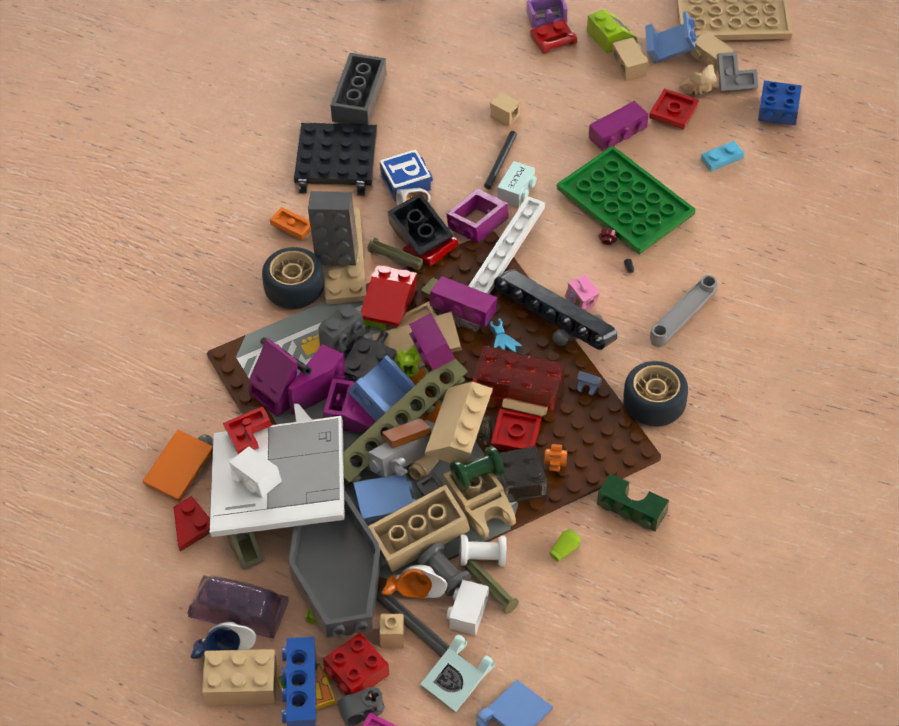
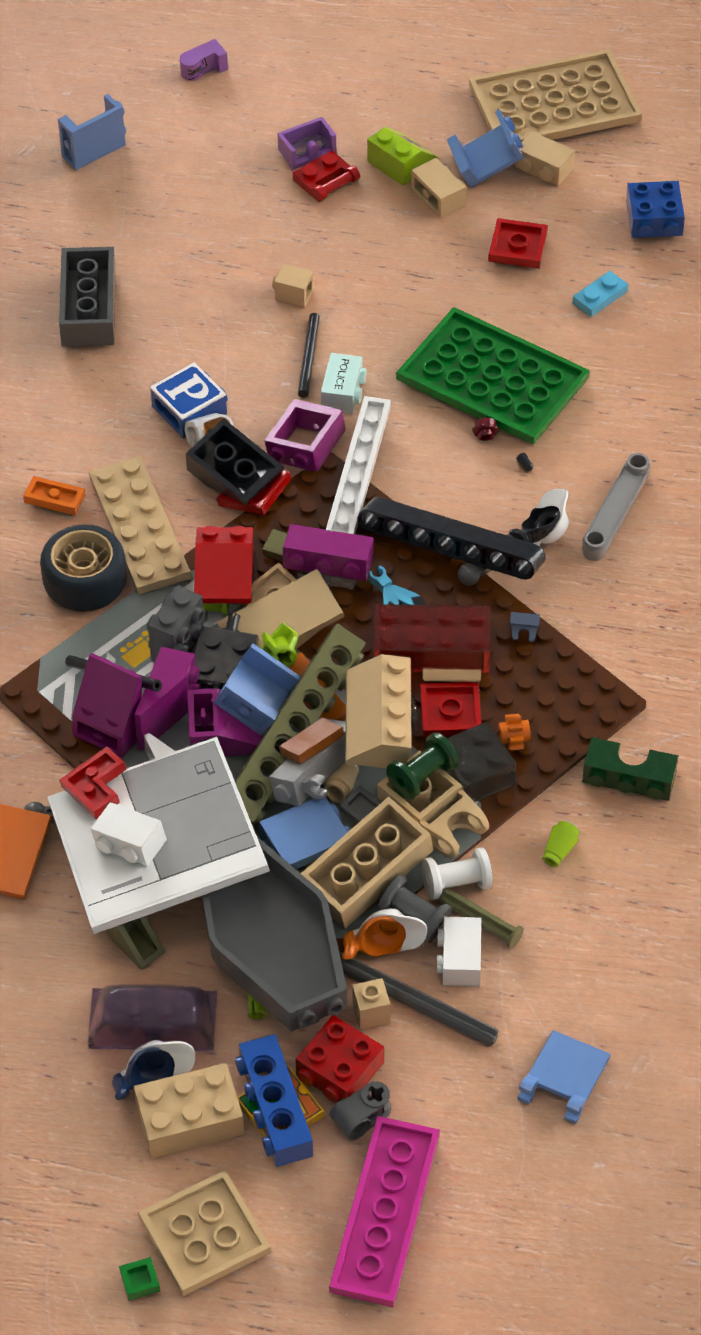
camera: 15 degrees left, 0 degrees up
(190, 523) = (51, 923): red wing -> none
(333, 227) = (127, 487): dark grey brick -> none
(335, 155) = (83, 391): black plate -> none
(394, 254) = (210, 508): olive axle -> none
(430, 342) = (307, 613): magenta brick -> none
(454, 677) = (472, 1046): light aqua flag -> none
(582, 292) = (478, 508): bright pink head -> none
(618, 126) = (452, 279): magenta brick -> none
(628, 312) = (546, 521): none -> hair
(655, 393) = (616, 621): black wheel -> none
(700, 82) = (543, 200): tan hair -> none
(730, 77) = (581, 187): light grey plate -> none

